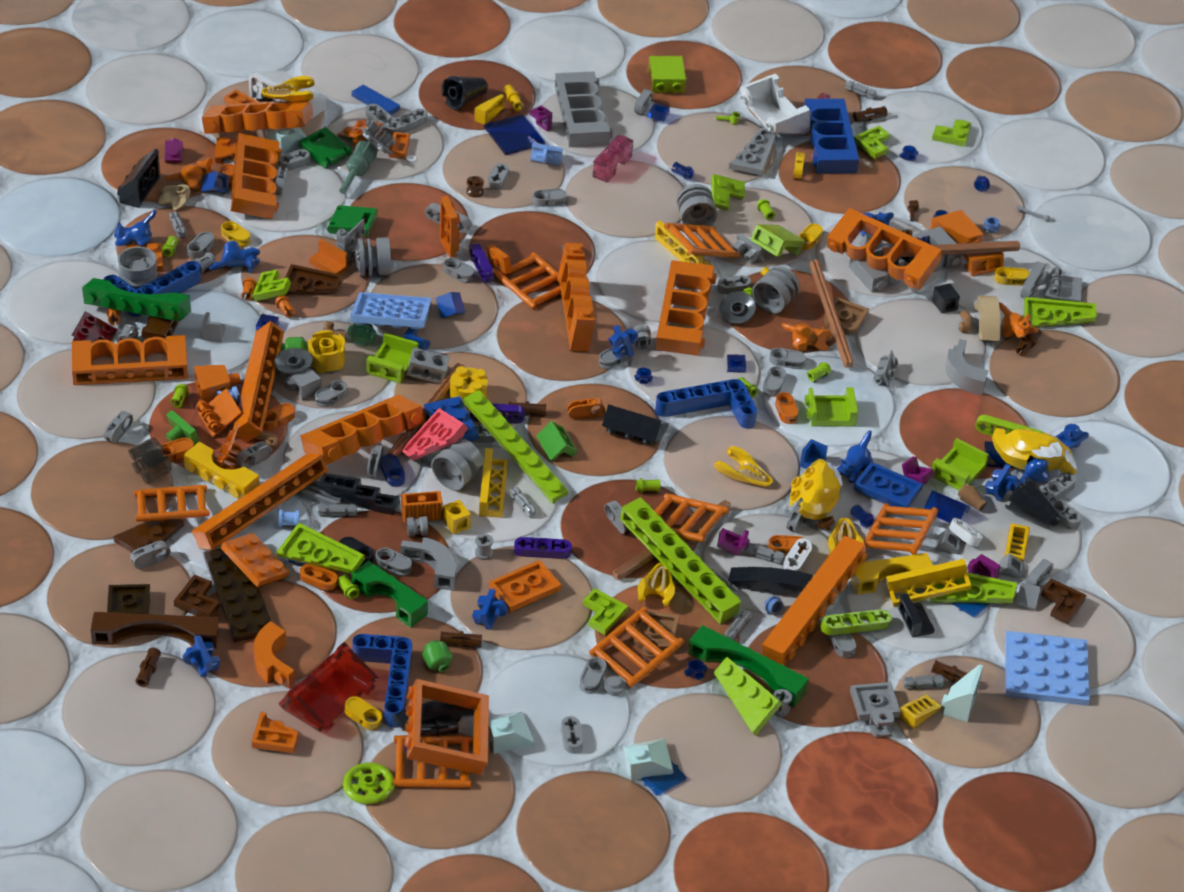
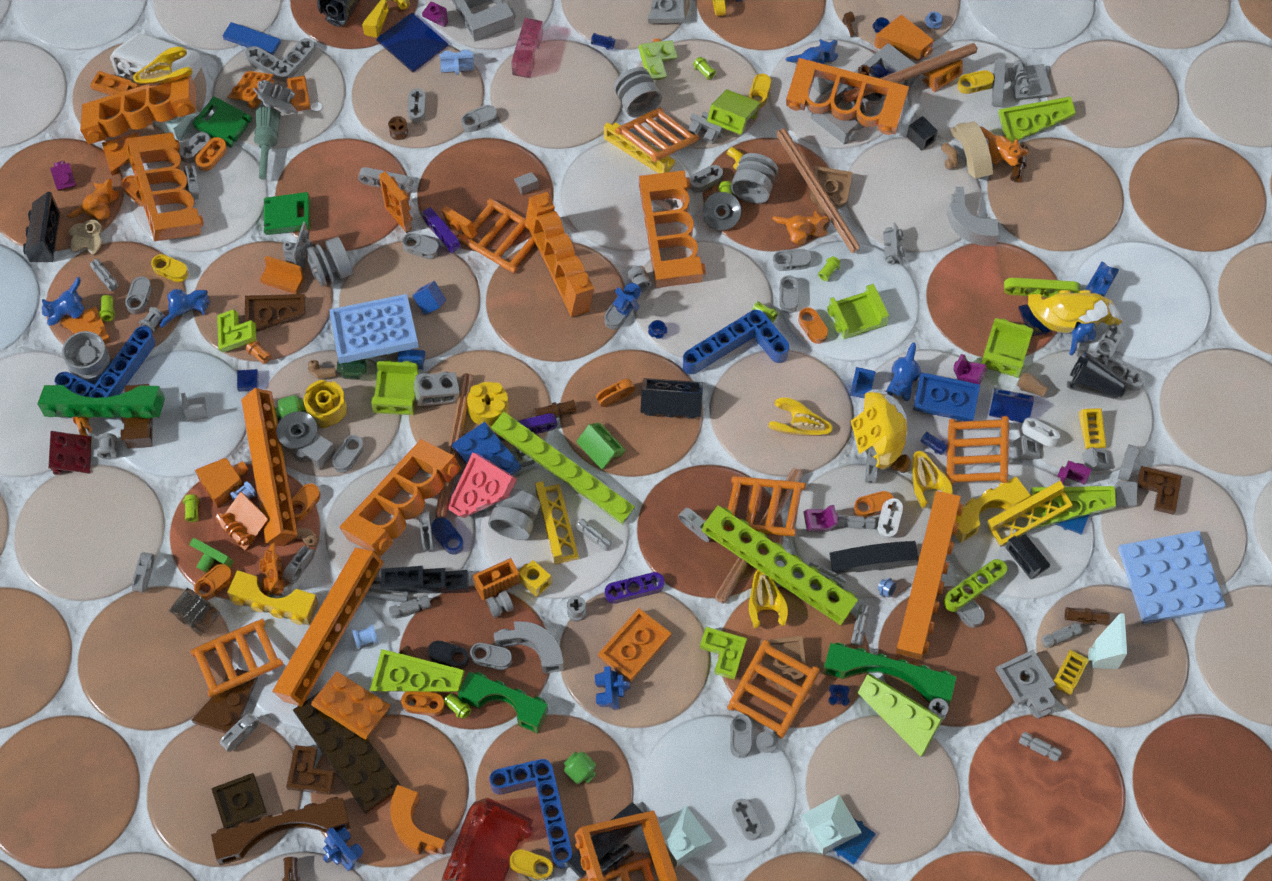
camera: 15 degrees left, 20 degrees up
(86, 352) = (69, 483): orange fence -> none
(215, 181) = (123, 207): blue panel -> none
(248, 288) = (210, 335): orange pin -> none
(305, 166) = (210, 155): none -> orange plate
(458, 639) = (594, 734): reddish brown pin -> none
(648, 485) = (711, 472): lime pin -> none
(736, 363) = (743, 282): clear blue plate -> none
(868, 755) = (1040, 746): none -> light grey axle
(1002, 482) = (1057, 356): blue hips -> none

